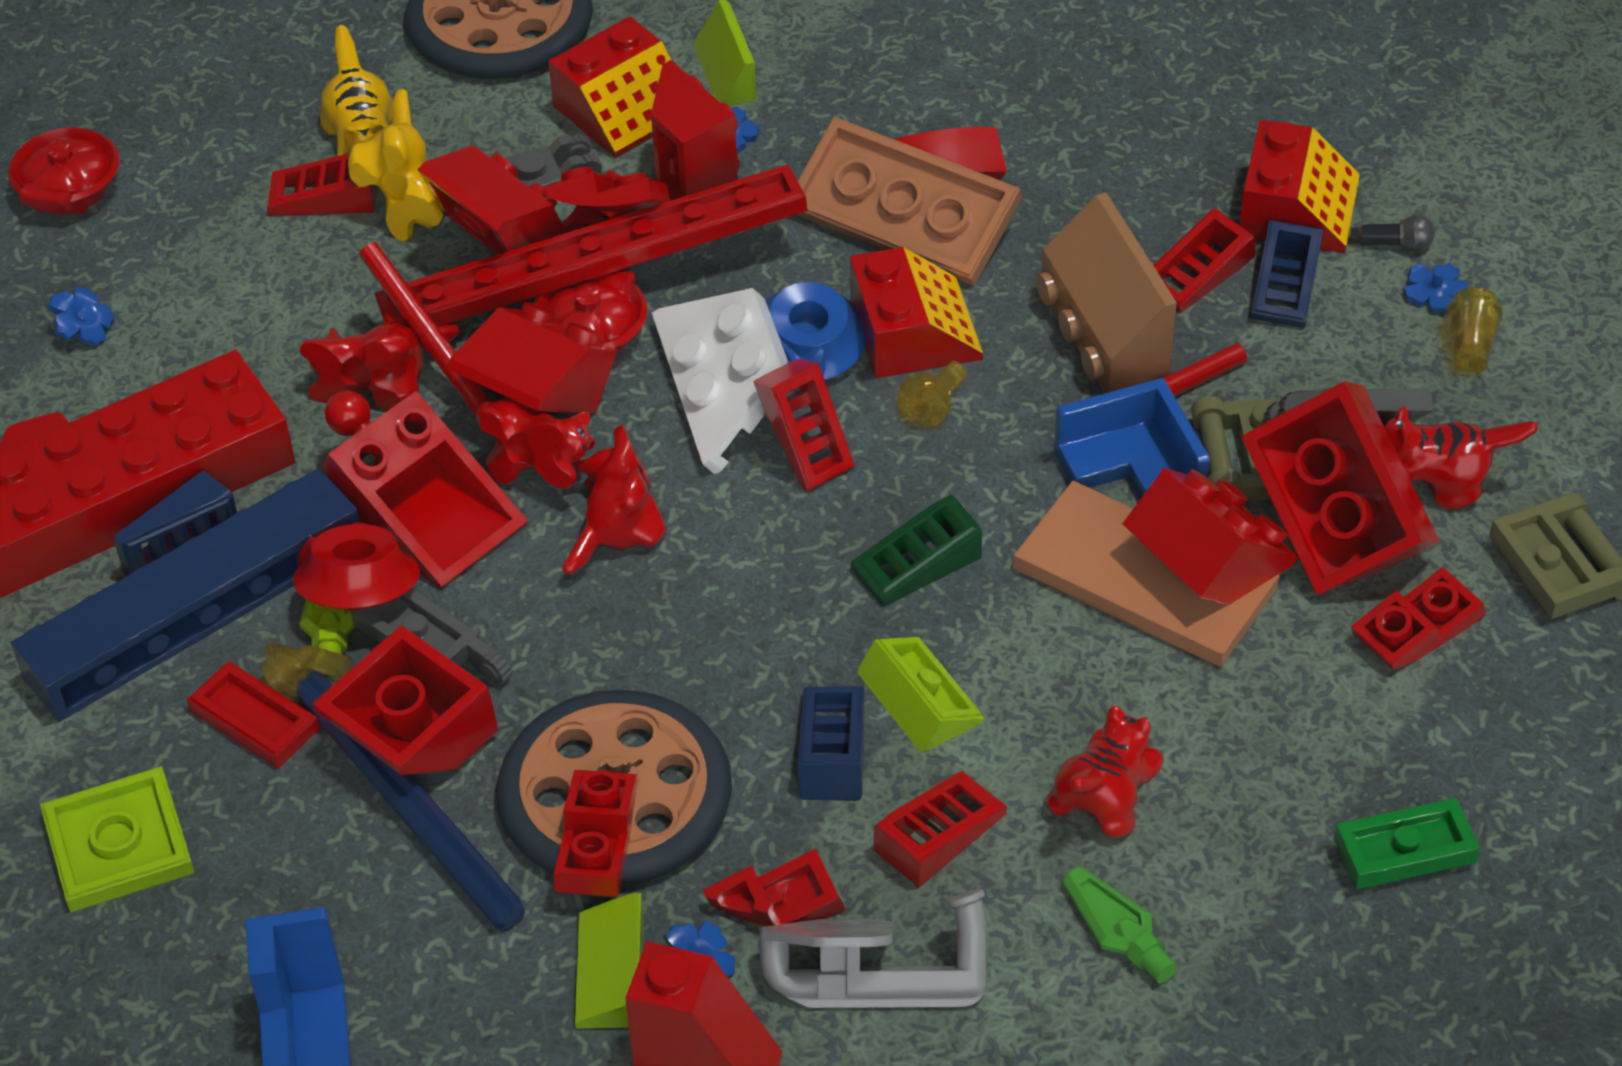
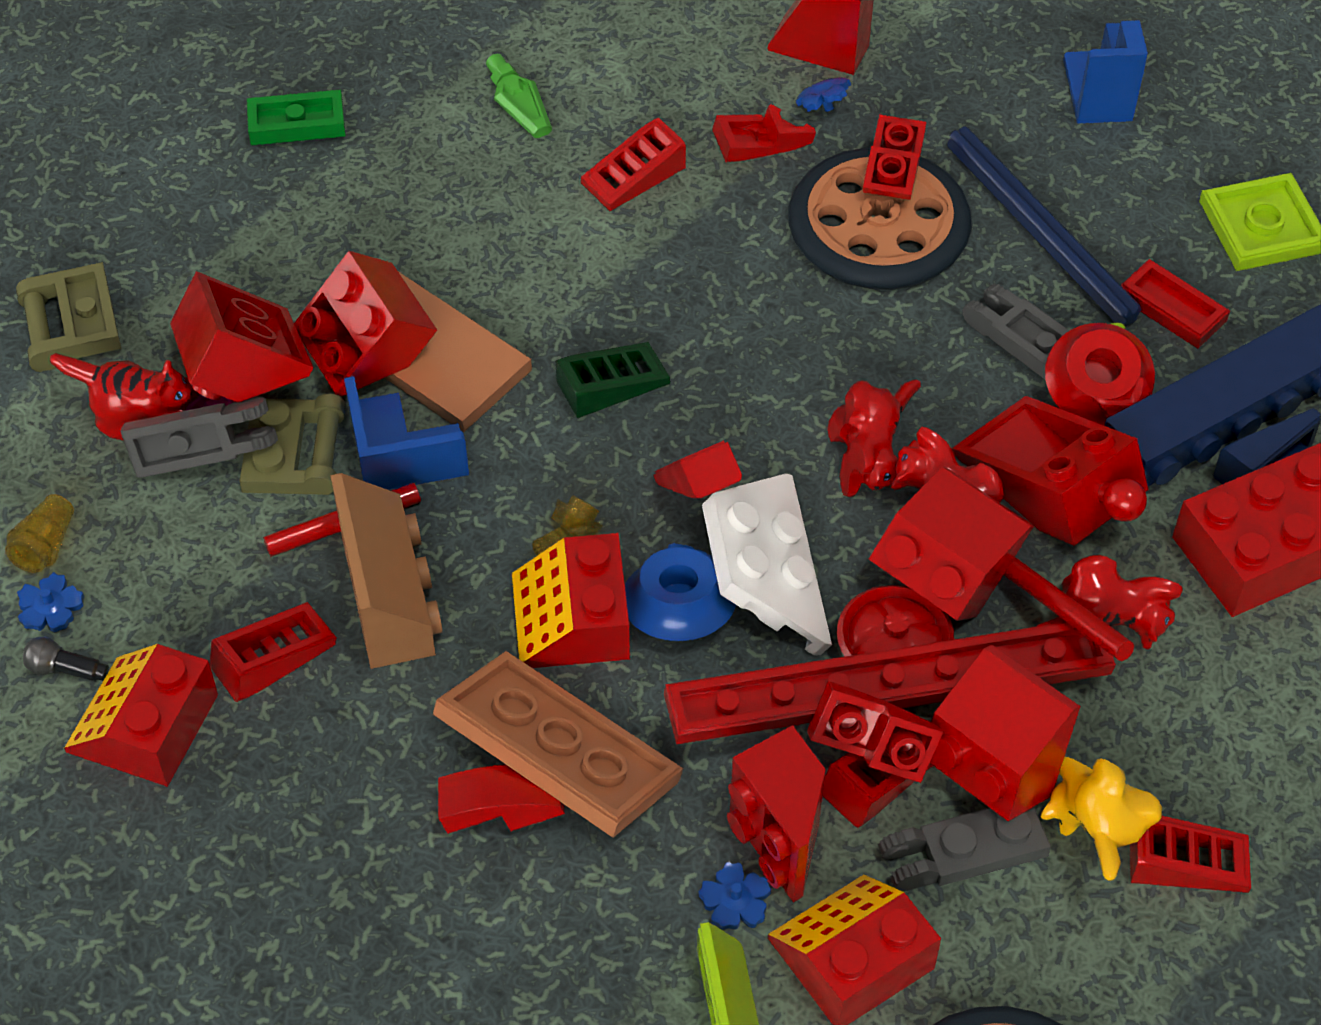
camera: 175 degrees left, 5 degrees up
(289, 665) = (1147, 320): clear yellow plate -> none
(355, 100) = (1157, 935): yellow animal -> none
(411, 706) = (1044, 249): red slope -> none
(606, 961) = (884, 93): lime slope -> none
(832, 775) = (713, 203): dark blue slope -> none
(847, 985) = (718, 74): light grey piece -> none
(917, 691) = (629, 270): lime slope -> none
(1108, 773) = (508, 169): red animal -> none
(1291, 241) = (201, 631): dark blue slope -> none
(1420, 622) = (233, 264): red slope -> none

